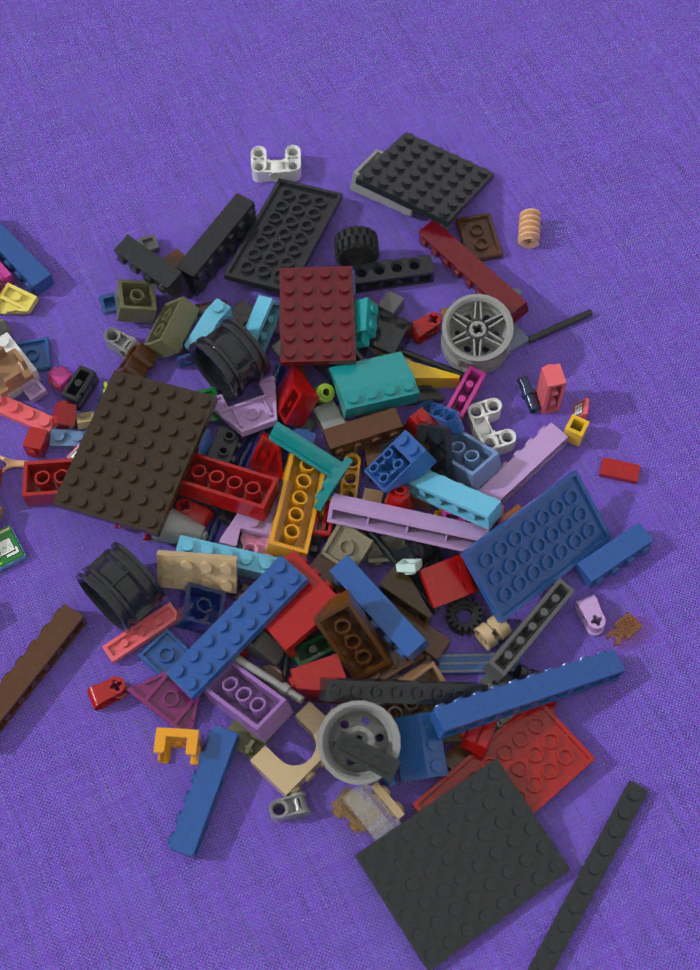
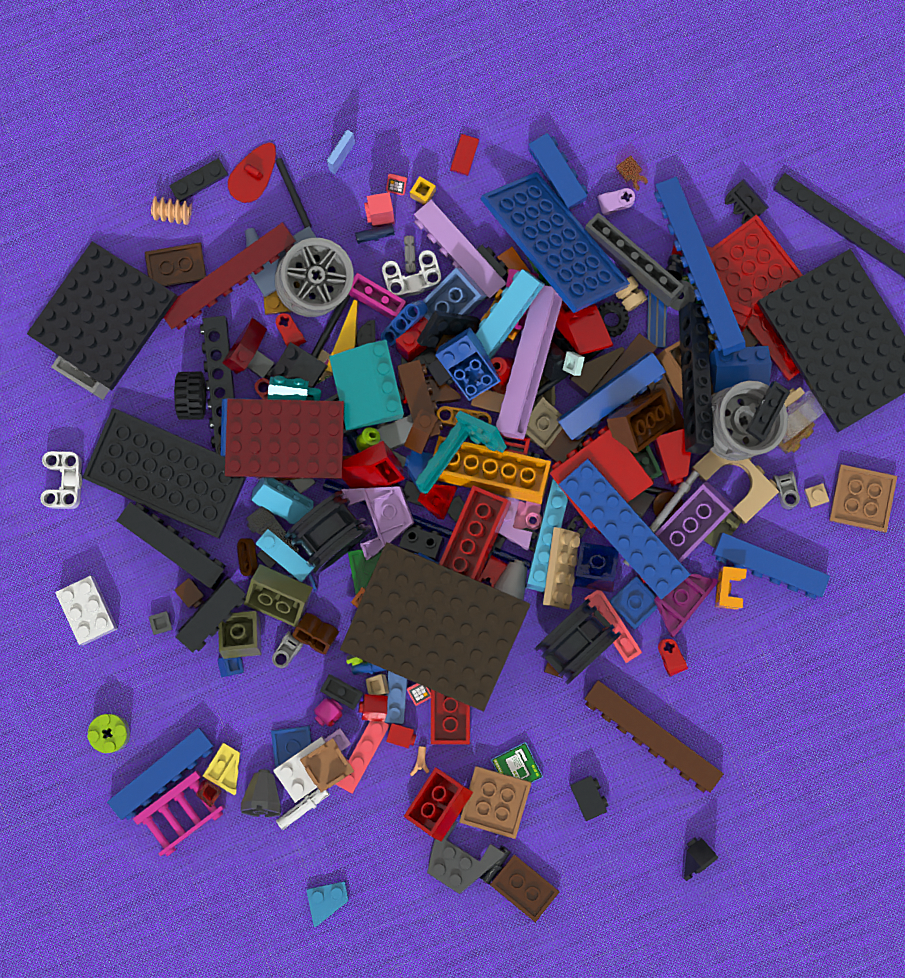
camera: 85 degrees left, 20 degrees up
(50, 210) = (97, 733): none -> lime brick
(160, 188) = (86, 610): none -> white brick
(283, 895) = (863, 498): none -> medium nougat plate
(285, 843) = (816, 495): none -> tan plate
(331, 428) = (421, 431): none -> reddish brown slope
(408, 289) = (245, 346): none -> dark red slope
(516, 426) = (409, 254): none -> light grey axle
(516, 494) = (488, 255): none -> black plate
(561, 251) = (198, 180): none -> black plate
(573, 293) = (252, 174): none -> red shield
(604, 356) = (341, 151): none -> light blue tile
(610, 750) = (747, 201): none -> black plate

